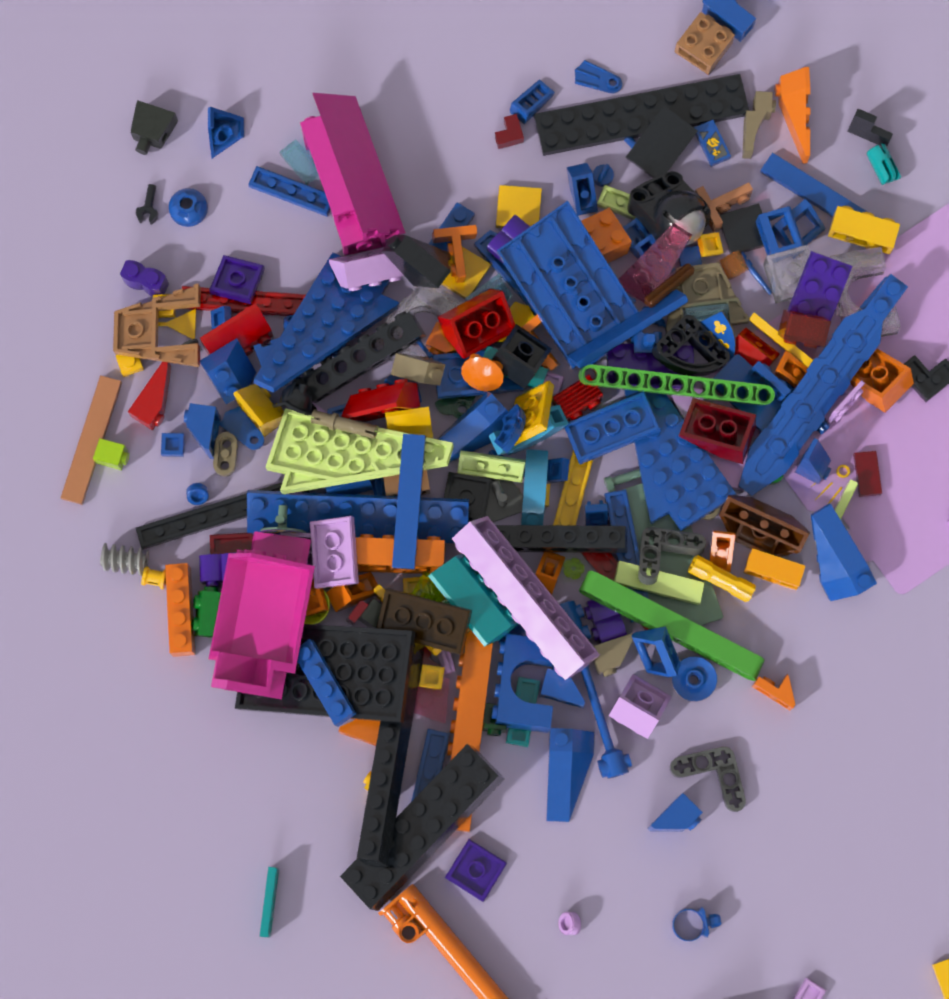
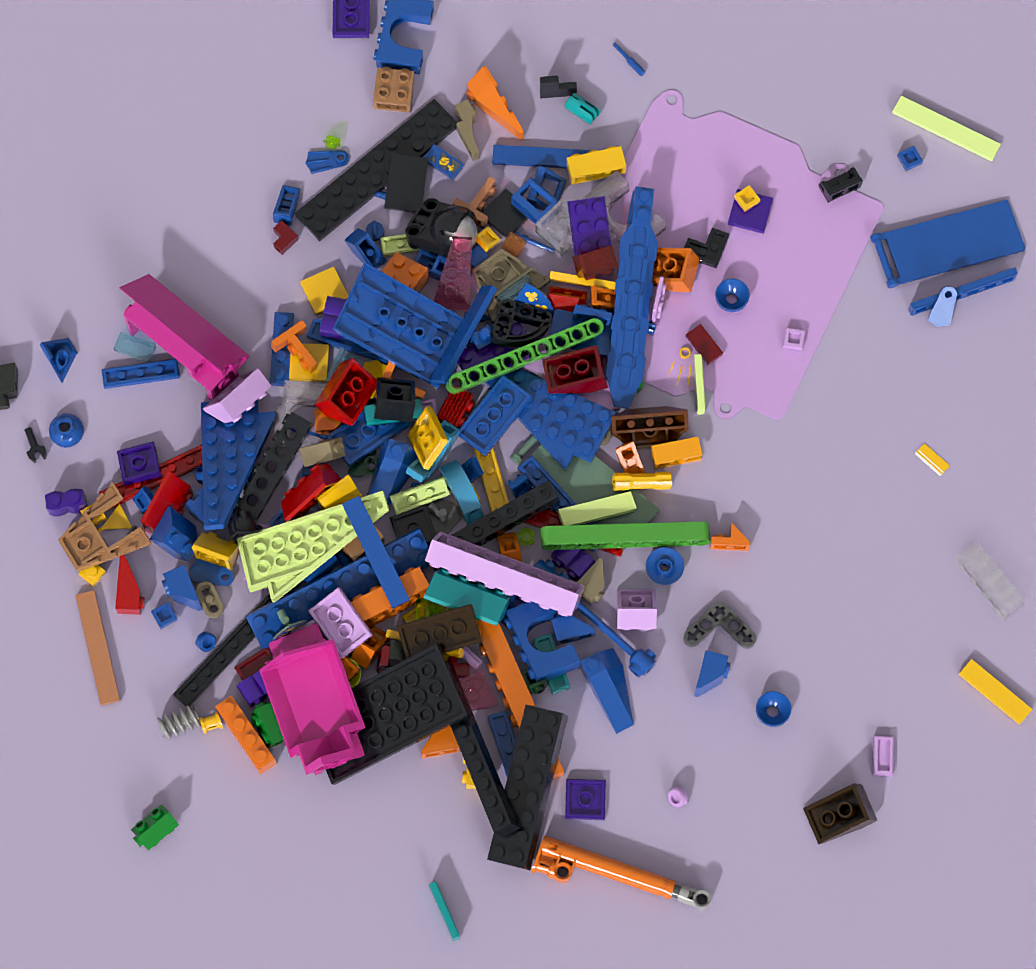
camera: 30 degrees left, 5 degrees down
(38, 651) = (154, 827): none -> green brick
(111, 454) = (121, 649): lime brick -> none
(324, 683) = (392, 722): blue plate -> none
(335, 422) = (291, 523): dark tan pin -> none
(418, 261) = (275, 370): black slope -> none
(431, 677) = (468, 675): yellow tile -> none
(482, 373) = (373, 427): orange dish -> none
(512, 428) = (421, 456): blue tile -> none
(612, 62) = (332, 142): none -> clear neon green plate
(661, 544) = (581, 480): dark grey beam -> none
(661, 639) = (623, 548): blue tile -> none
(669, 285) = (475, 285): reddish brown axle -> none
(712, 920) = (781, 734): blue piece -> none
(730, 886) = (777, 700): none -> blue piece
(814, 463) = (660, 357): blue slope -> none
(840, 562) = (722, 419): blue wedge -> none
(934, 434) = (734, 287): none -> blue piece

